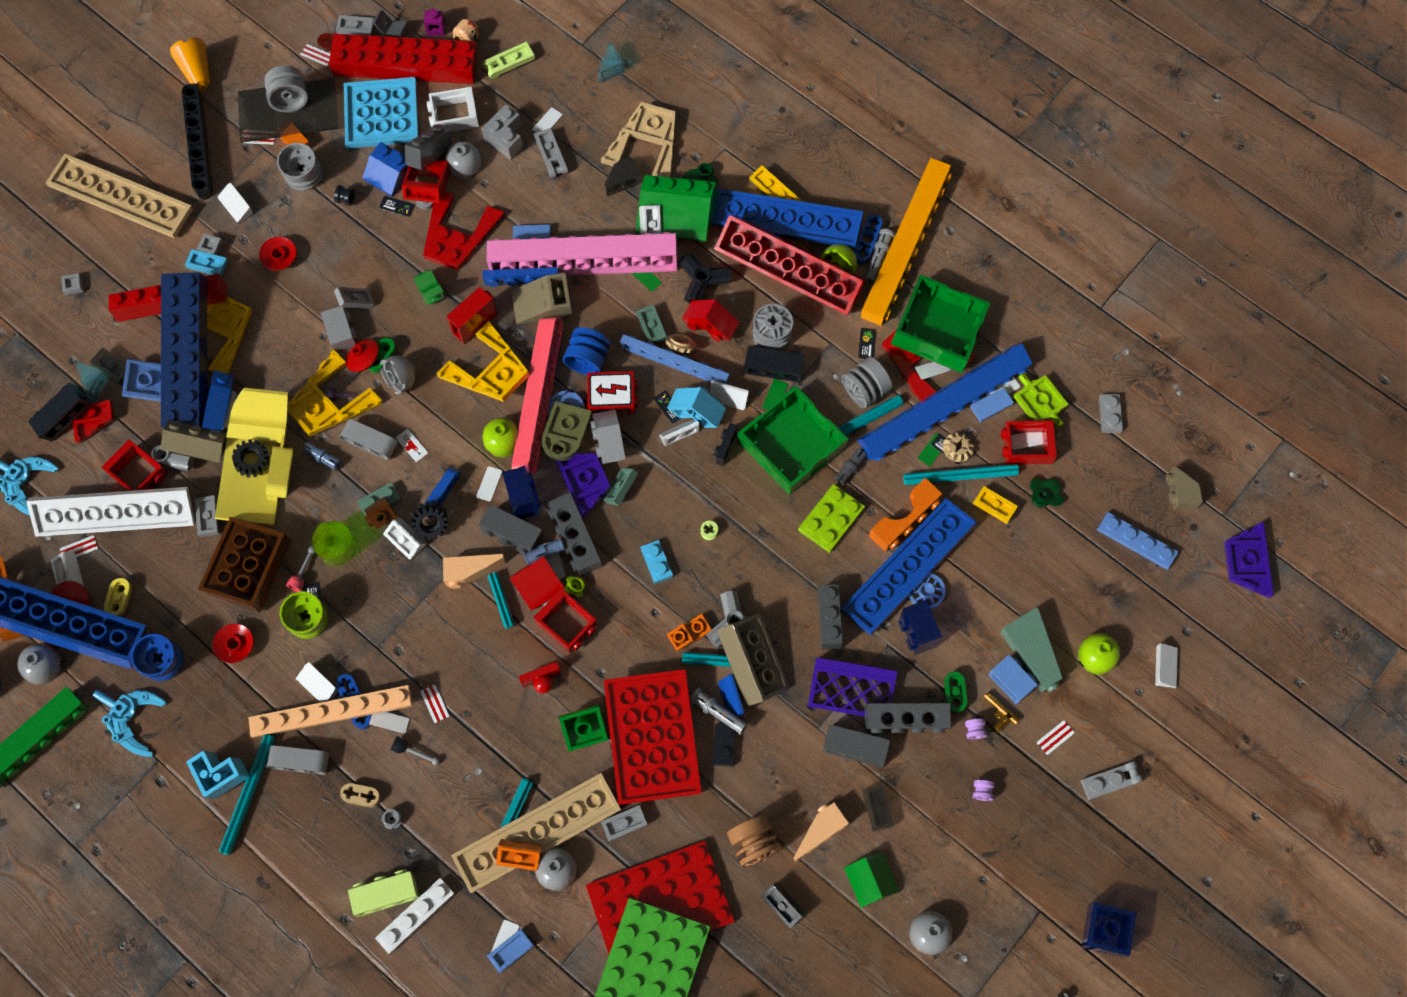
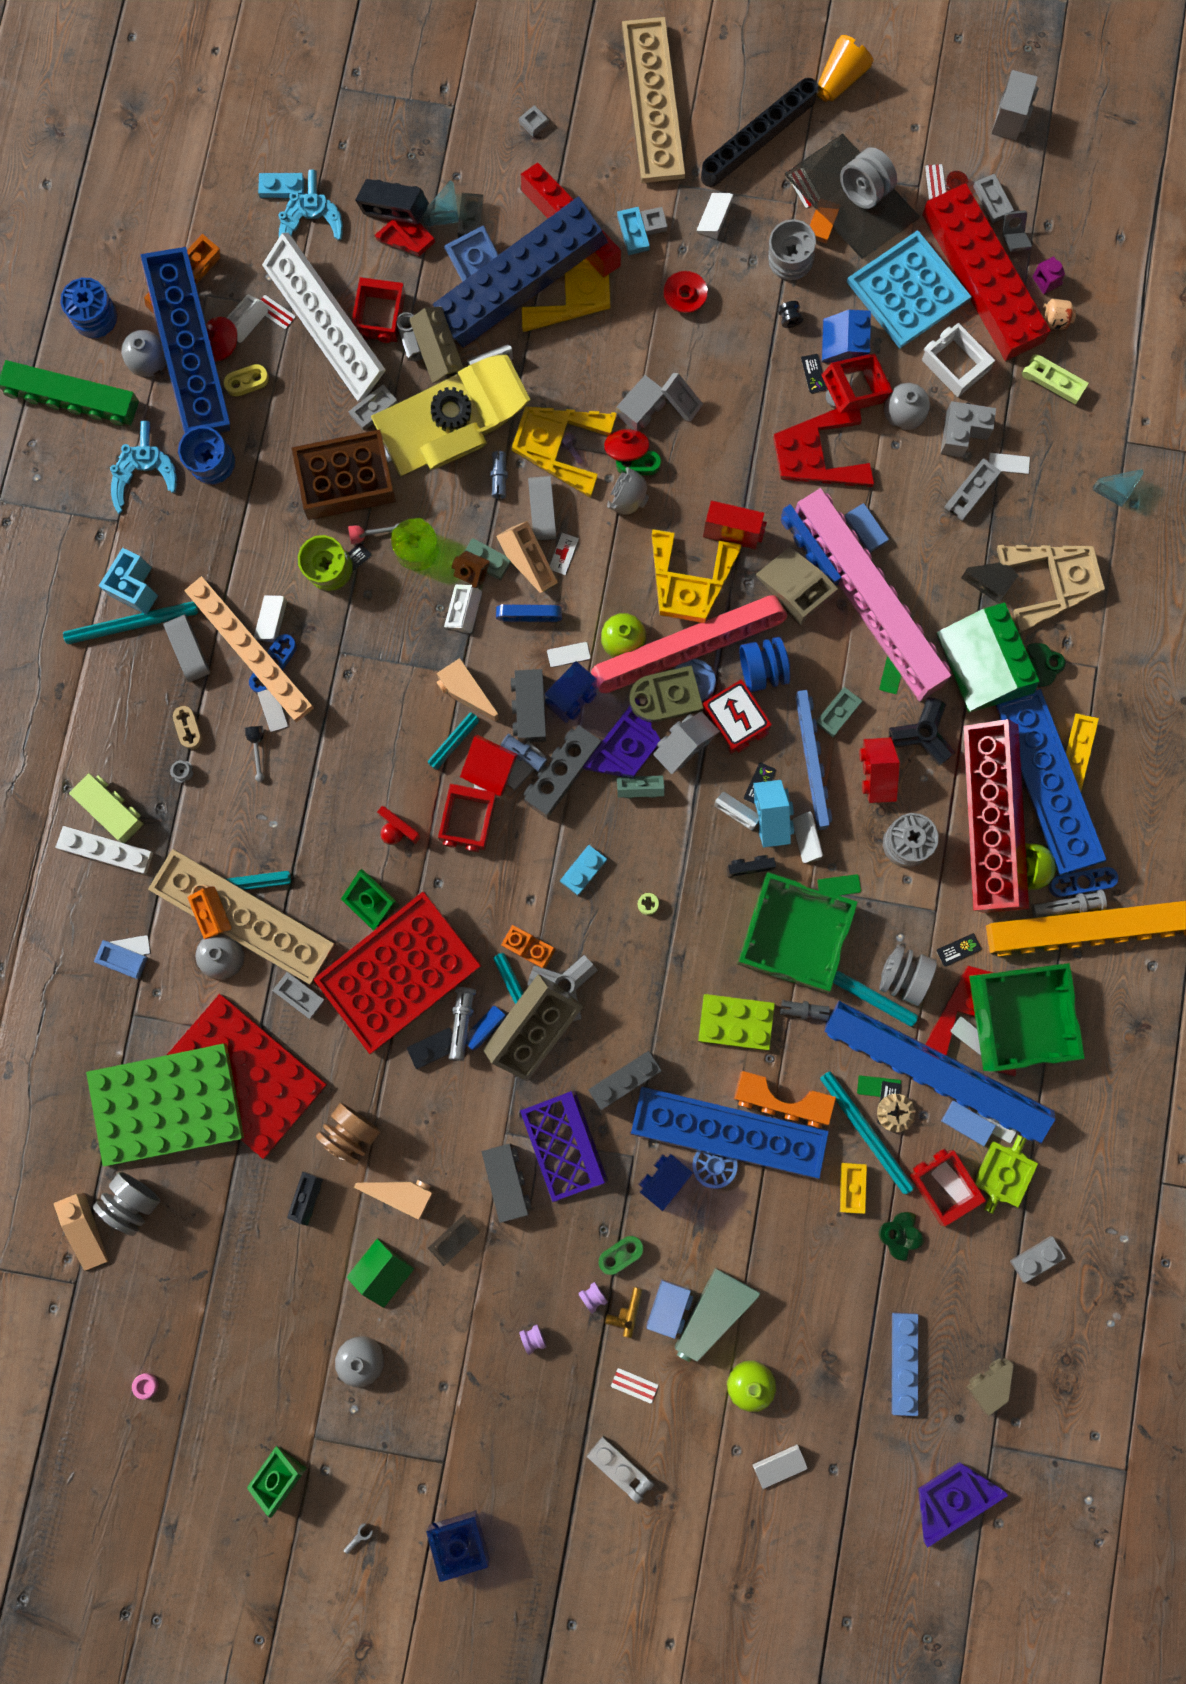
camera: 60 degrees right, 10 degrees up
(217, 400) = (490, 339): blue slope -> none
(226, 637) = (258, 506): red dish -> none
(393, 468) = (526, 554): none -> light nougat slope
(428, 146) = (894, 361): dark grey brick -> none
(428, 287) = (740, 461): green brick -> none
(429, 531) = (500, 618): black tyre -> none
(434, 703) = (315, 741): sticker -> none
(578, 583) = (513, 808): lime plate -> none
(650, 219) = (954, 641): white slope -> none
(681, 343) = (841, 753): tan gear -> none
(774, 363) = (872, 864): black brick -> none
(940, 717) = (574, 1255): dark grey brick -> none

